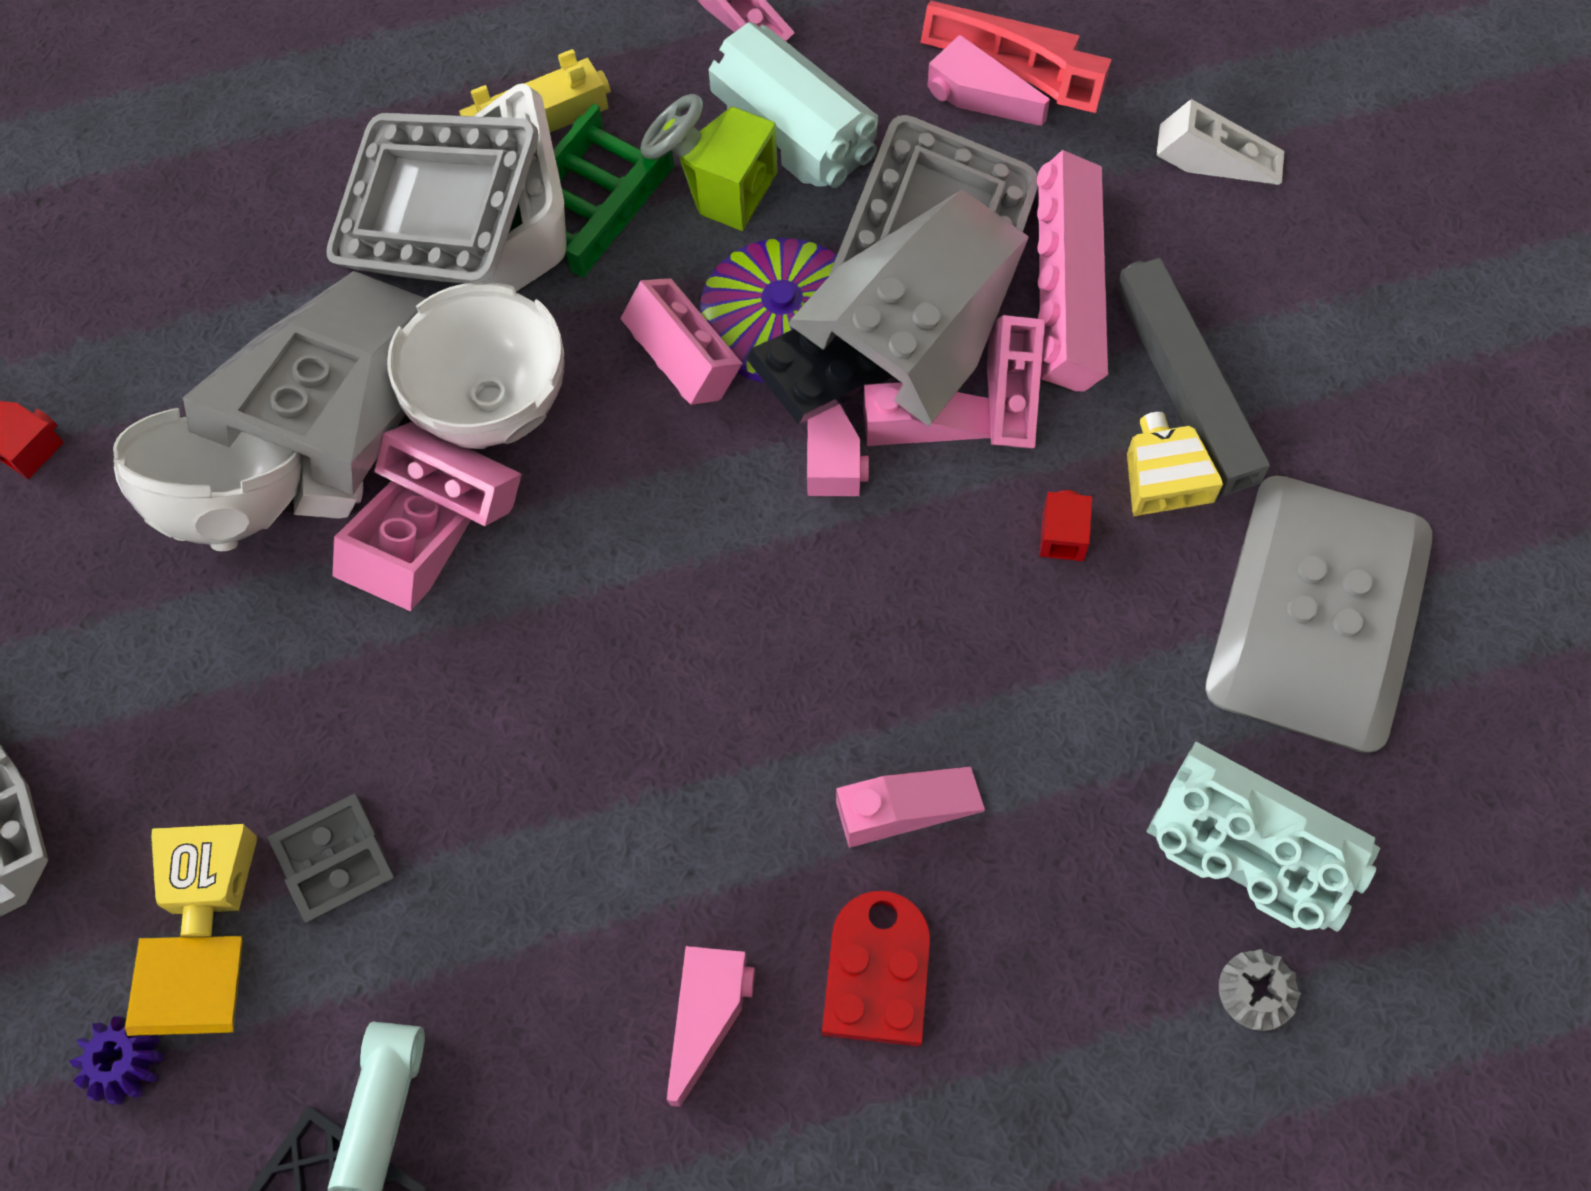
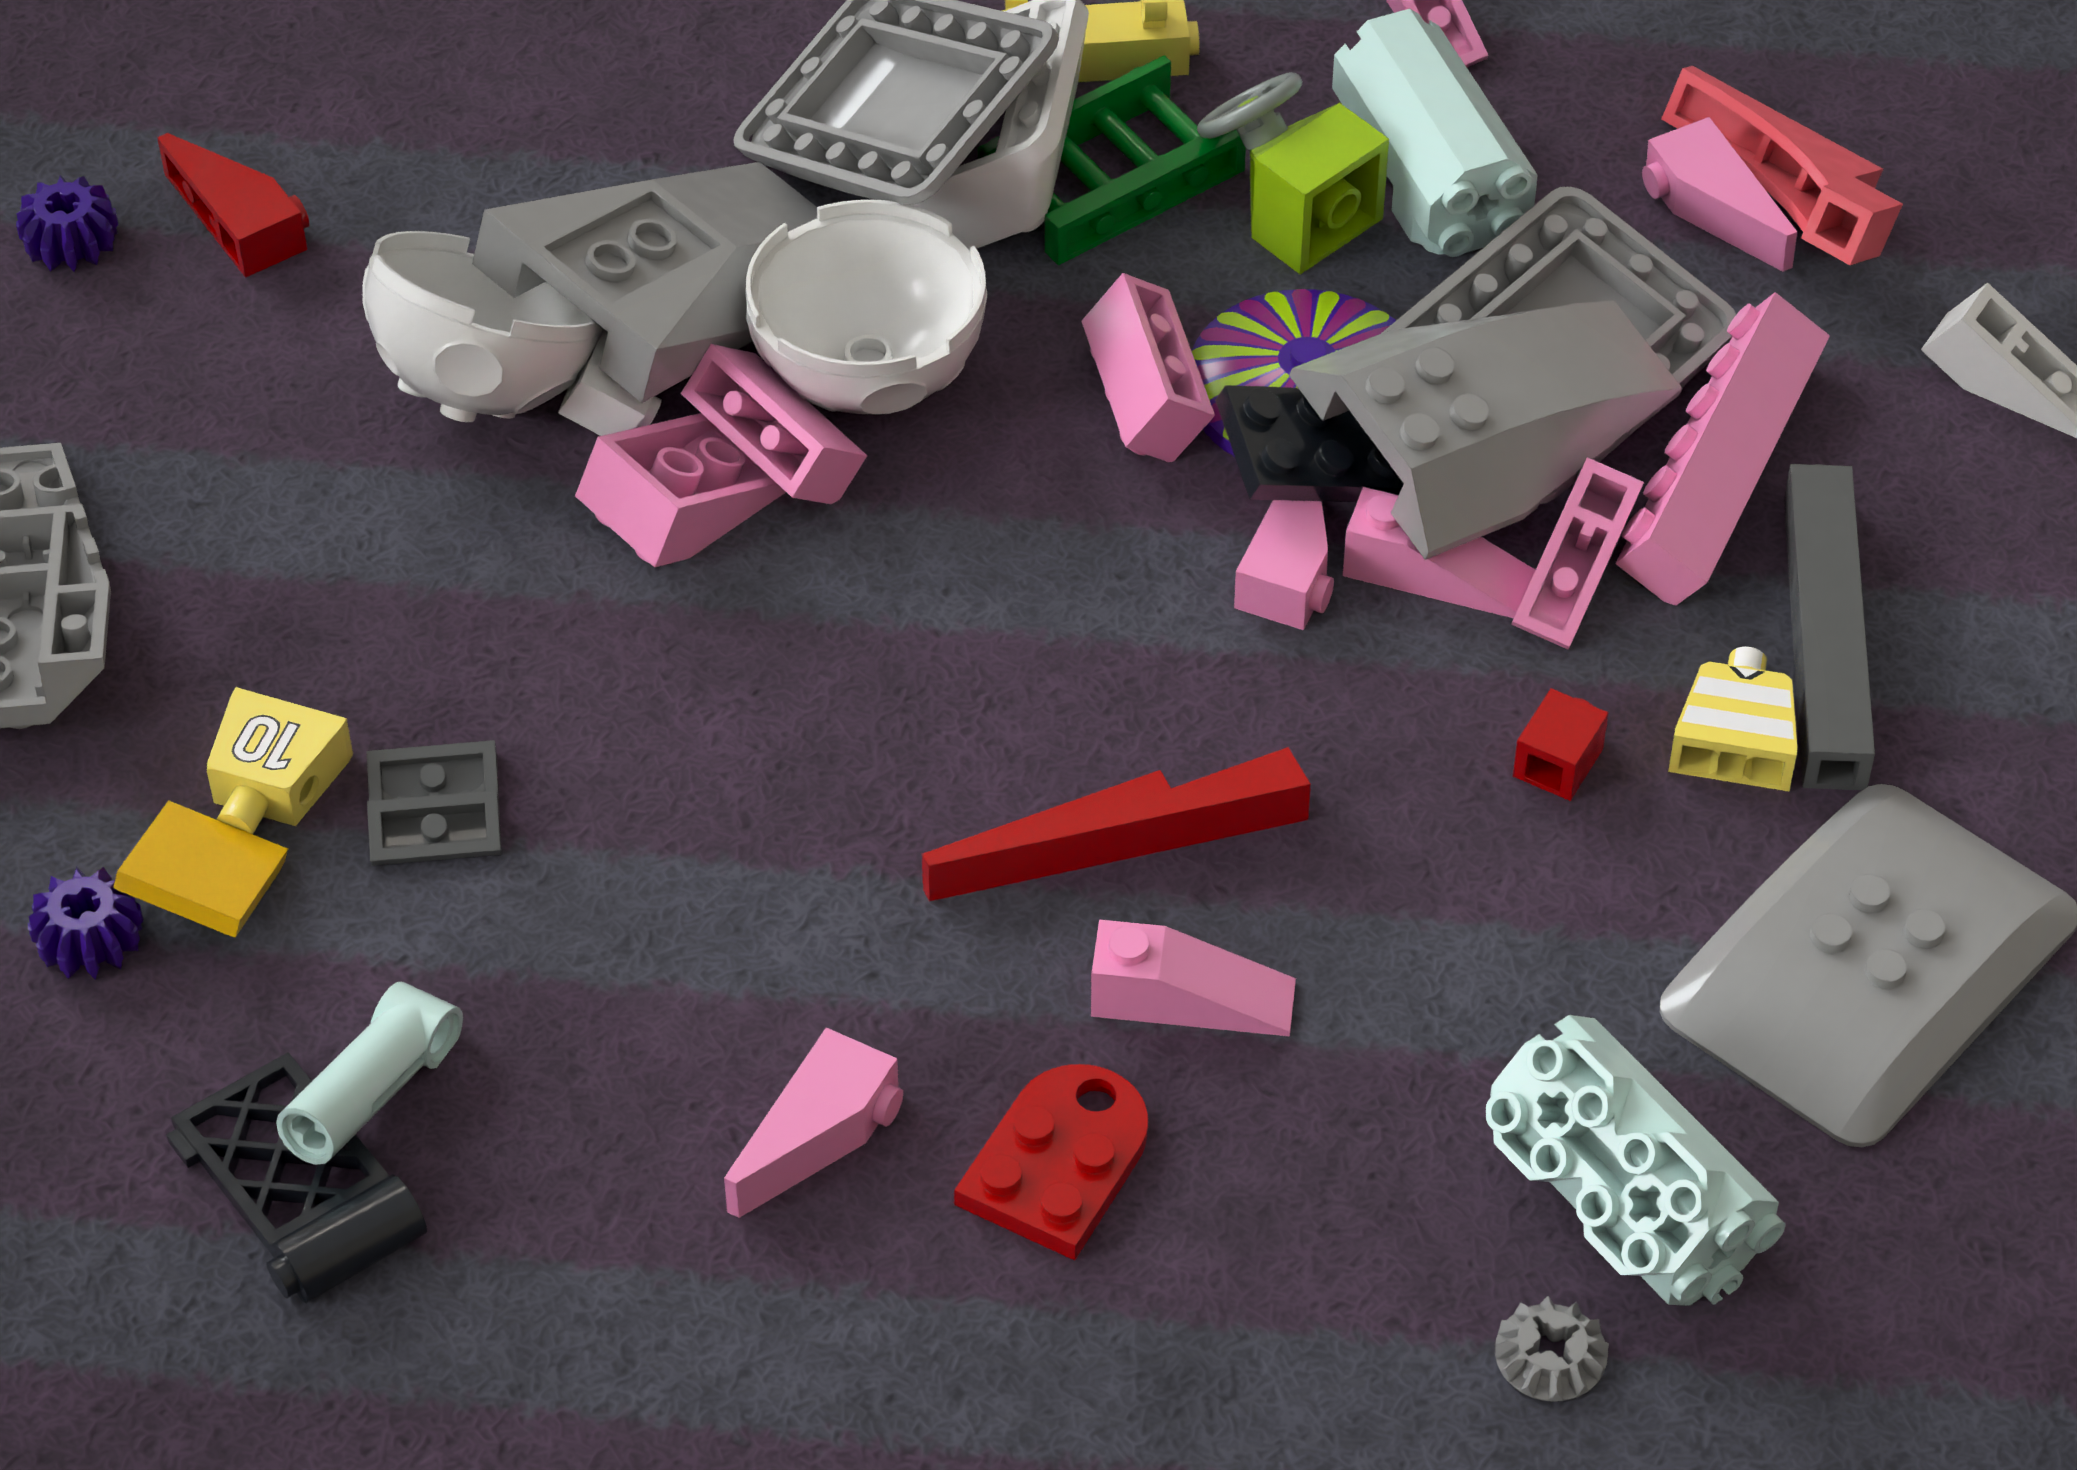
camera: 20 degrees right, 15 degrees down
(813, 693) = (1123, 824): none -> red slope

